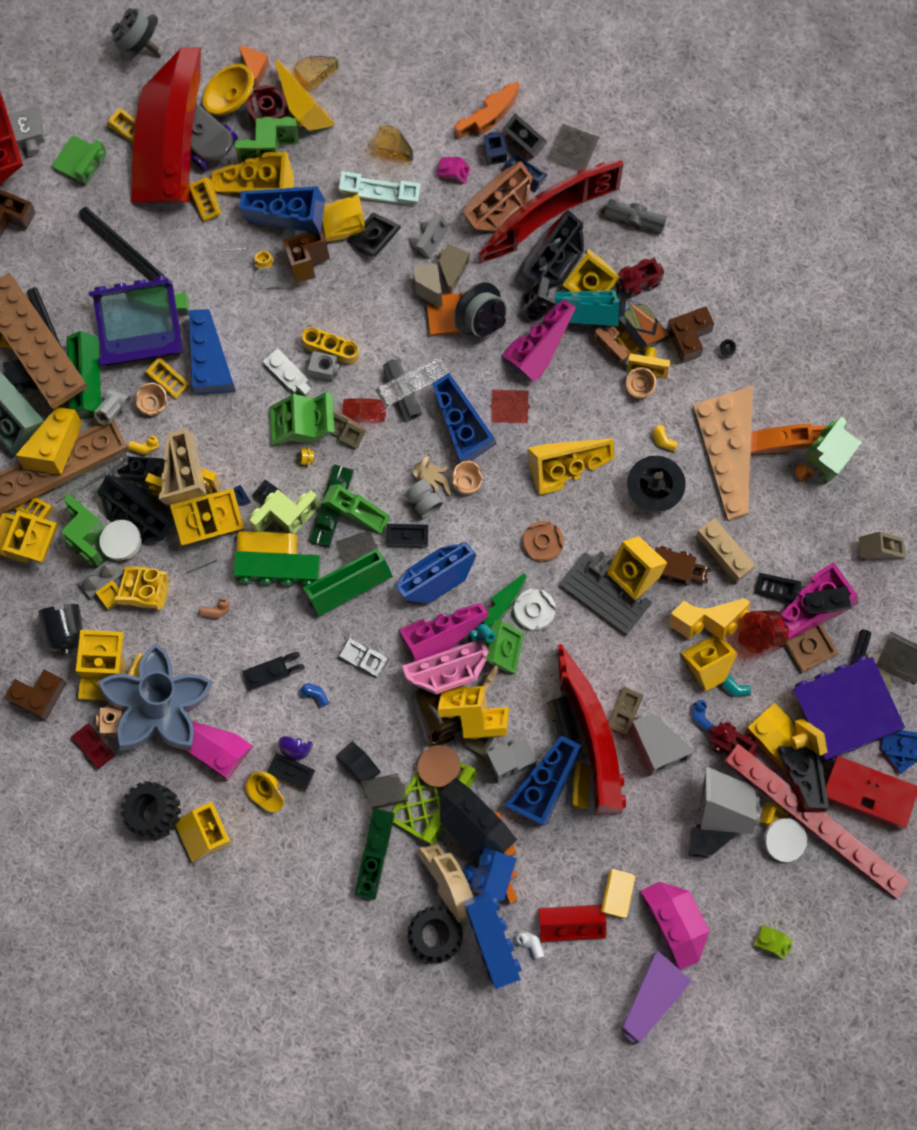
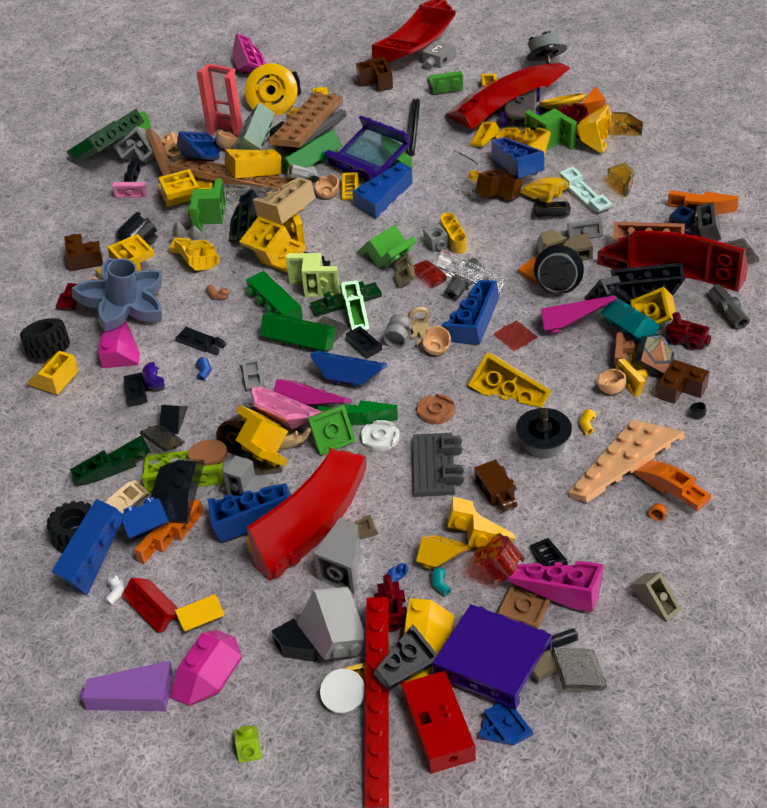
camera: 55 degrees right, 30 degrees down
(120, 540) = (219, 226): white tile -> none
(267, 542) = (289, 284): yellow beam -> none
(268, 799) = (110, 382): yellow piece -> none
(287, 372) = (414, 227): white hinge -> none
(306, 456) = (366, 267): yellow plate -> none
(453, 169) = (644, 212): dark pink bracket -> none
(482, 632) = (325, 404): teal arm -> none
(636, 566) = (467, 453): yellow slope -> none
(725, 550) = (540, 503): tan brick -> none
(808, 736) = (436, 637): yellow tile -> none
(828, 601) = (565, 577): black plate -> none
(832, 449) = (690, 501): bracket -> none

